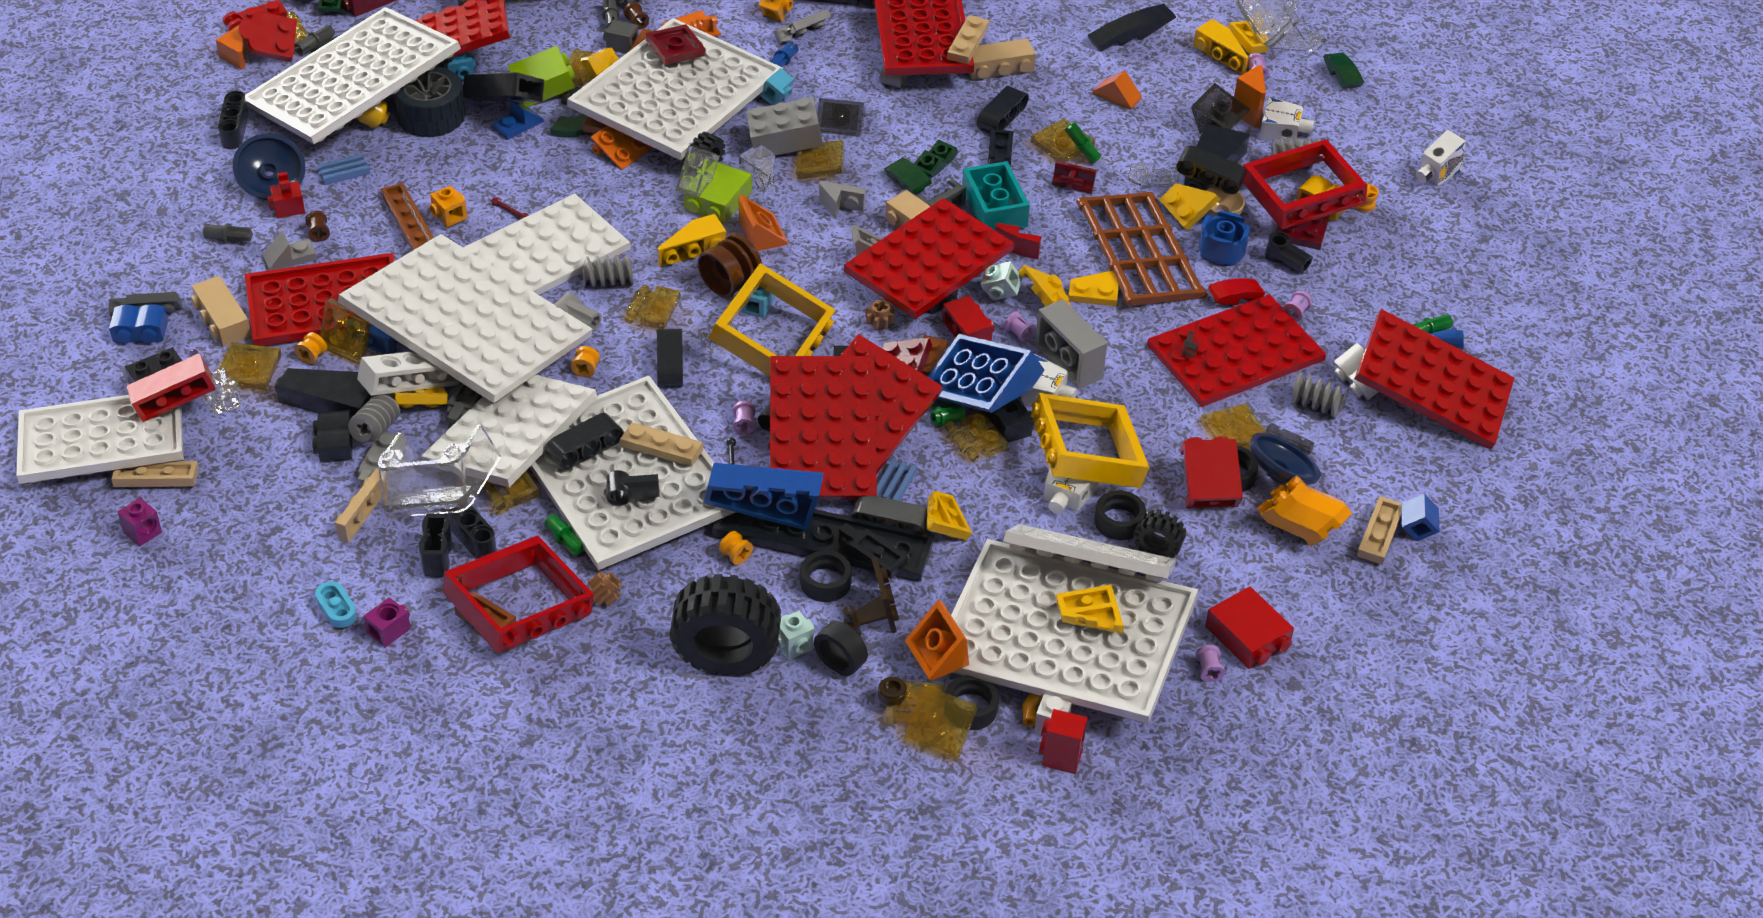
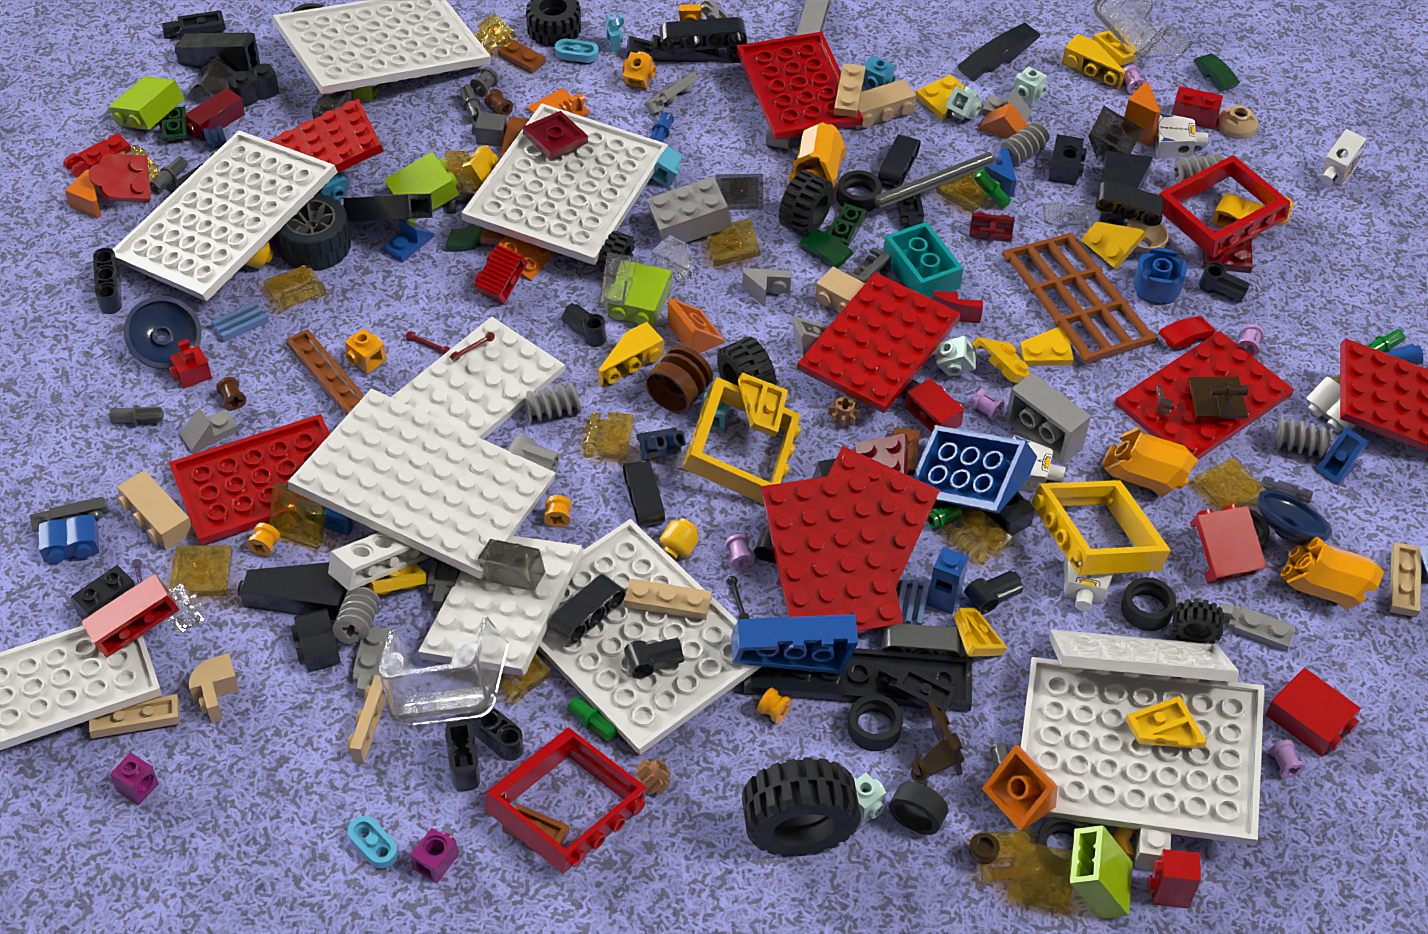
camera: 10 degrees left, 5 degrees up
(230, 455) = (211, 680): none -> tan brick
(364, 11) = (214, 137): none -> dark blue wheel
(401, 147) = (294, 287): none -> clear yellow plate
(523, 393) = (512, 564): none -> clear smoke brick
(529, 220) = (456, 355): none -> dark red hinge
(591, 157) = (500, 273): none -> red brick
(660, 210) = (589, 325): none -> black piece
(691, 399) = (679, 538): none -> yellow head
(695, 316) = (660, 443): none -> dark blue hips
(796, 261) = (745, 357): none -> black tyre
(797, 292) = (763, 403): none -> yellow wing
(896, 131) = (805, 202): none -> black tyre
(920, 99) = (820, 152): none -> light orange brick
(928, 464) = (947, 580): none -> blue brick
(960, 121) = (858, 179): none -> black tyre
(967, 485) = (987, 594): none -> black piece
(993, 723) = (1101, 872): none -> lime brick
(1003, 29) = (878, 72): none -> dark azure brick
(1028, 129) = (934, 180): none -> dark grey axle
(1063, 59) = (937, 93): none -> yellow wing
(1081, 66) = (964, 103): none -> light aqua brick
(1099, 131) = (1003, 172): none -> blue slope
(1129, 109) = (1026, 143): none -> light grey piece
(1133, 72) = (996, 102): none -> light grey slope
(1151, 60) = (1030, 85): none -> light aqua brick
(1159, 394) = (1150, 462): none -> light orange brick
(1167, 128) = (1066, 159): none -> black brick
(1220, 549) = (1258, 626): none -> light grey hinge
(1244, 348) = (1218, 397): none -> dark brown plate
(1315, 98) = (1198, 105): none -> red brick
(1349, 120) = (1237, 126): none -> tan piece
(1352, 415) = (1342, 455): none -> blue slope

